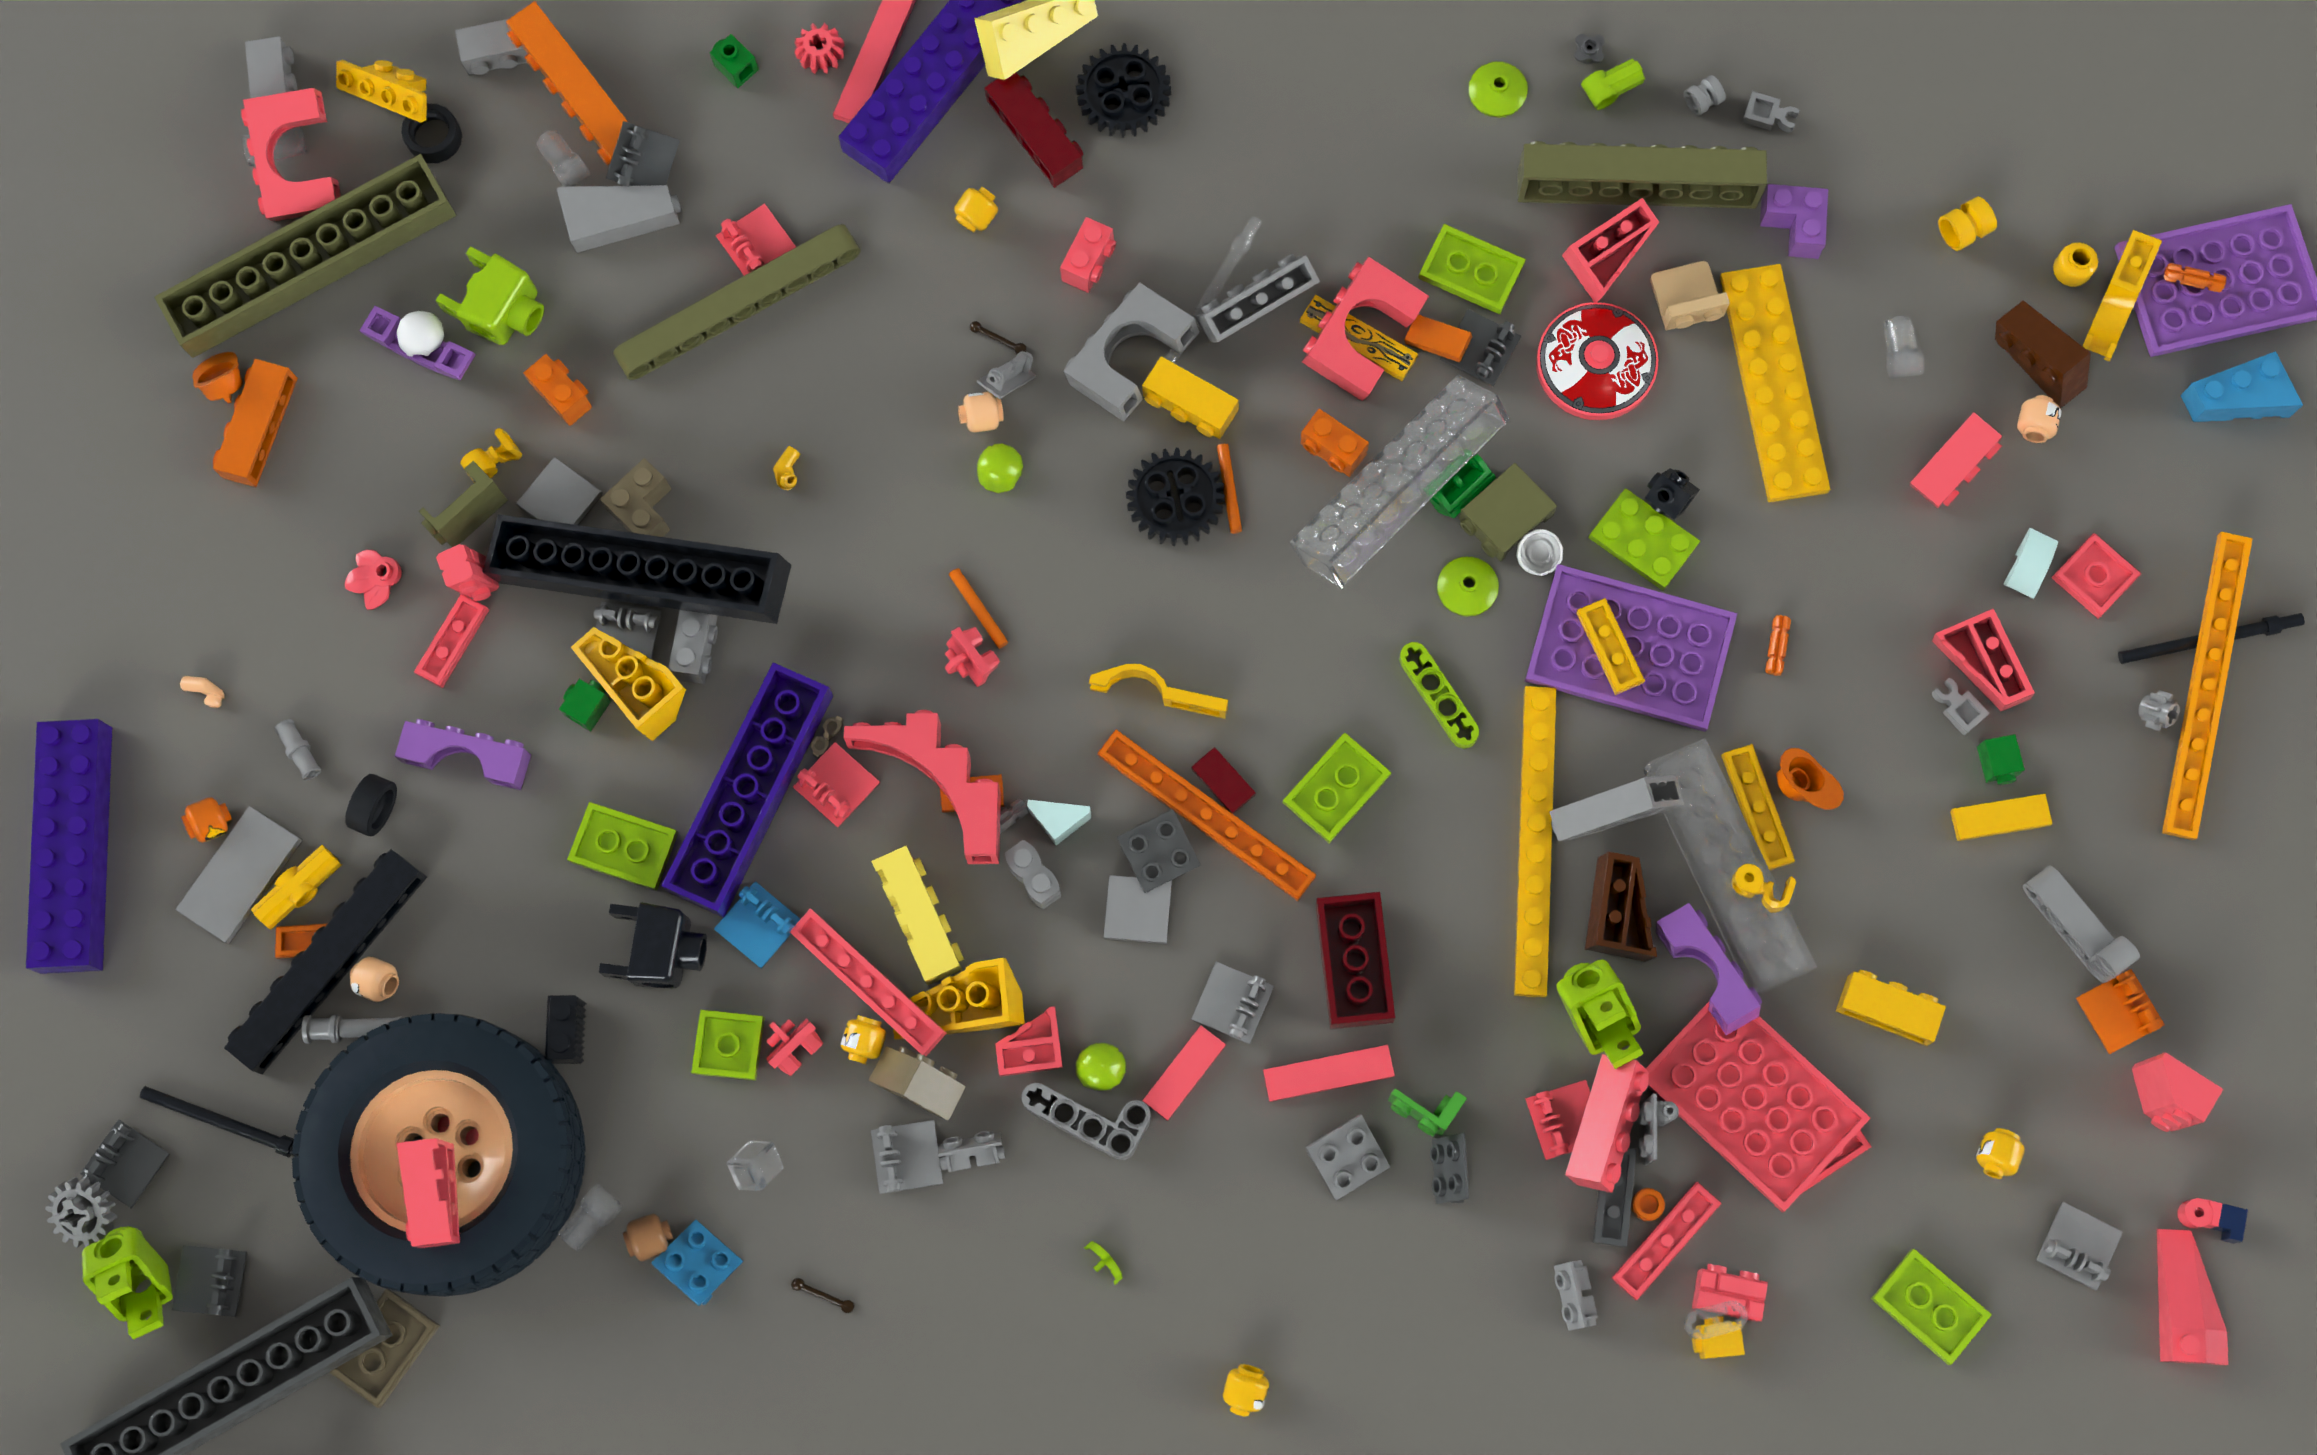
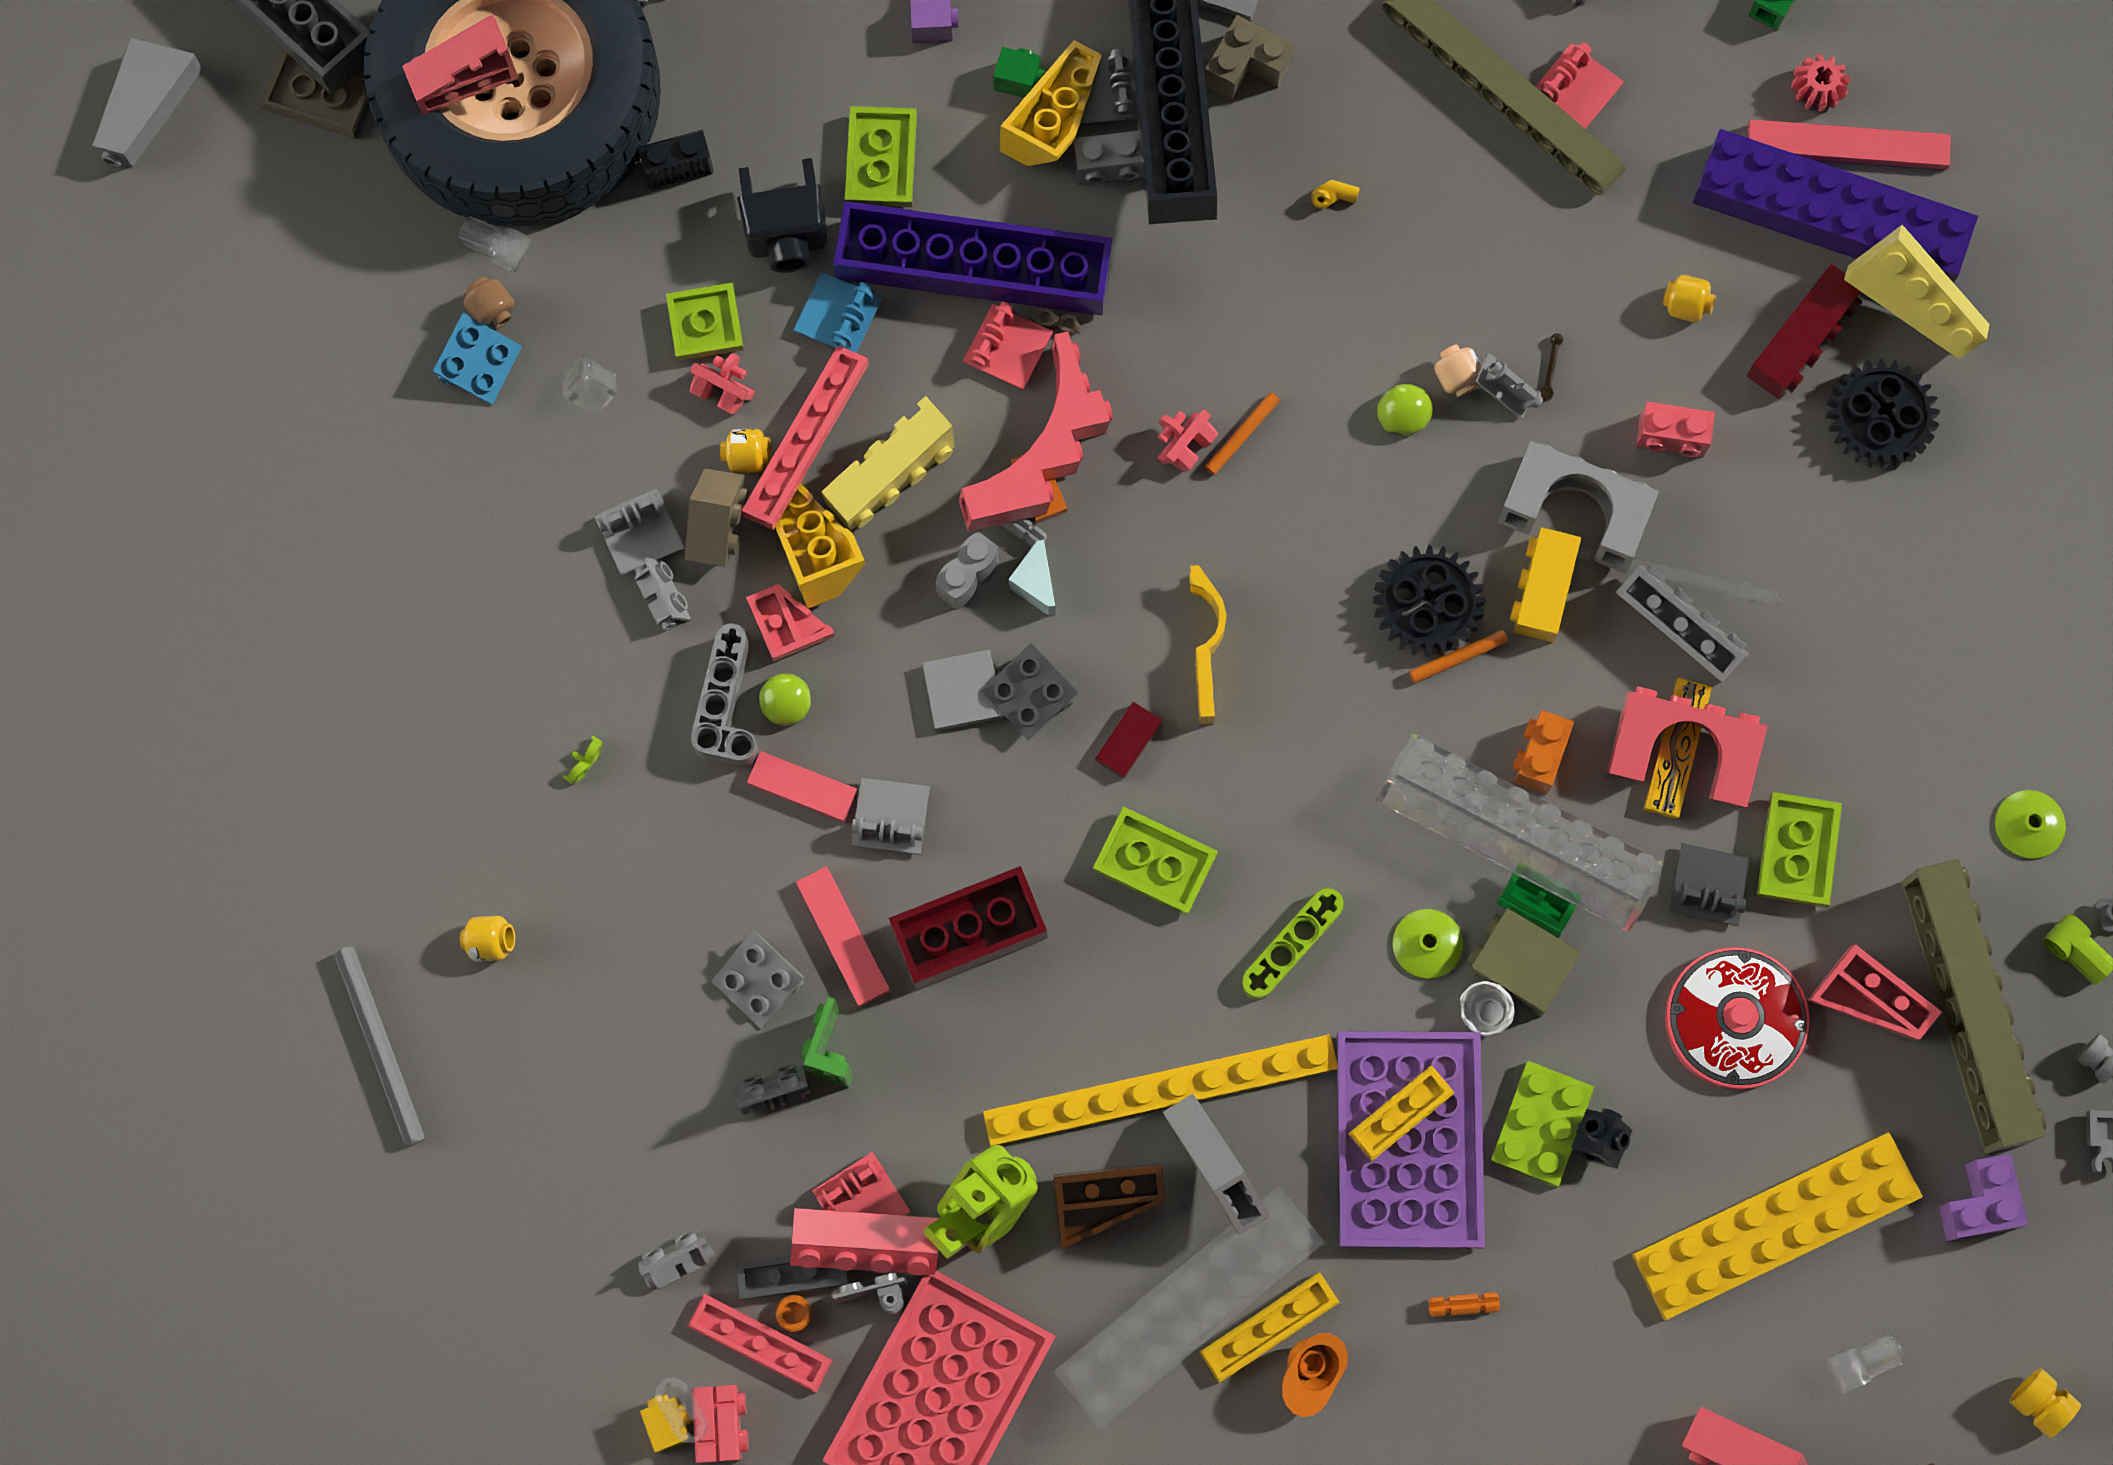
camera: 70 degrees right, 0 degrees up
(847, 1306) = (472, 518): dark brown hinge -> none
(1207, 815) = (1086, 734): orange tile -> none
(1438, 338) = (1704, 833): orange tile -> none
(1686, 936) = (1036, 1341): medium lavender arch -> none
(1688, 295) = (1848, 1100): tan bracket -> none
(1749, 882) = (1169, 1327): yellow leg -> none

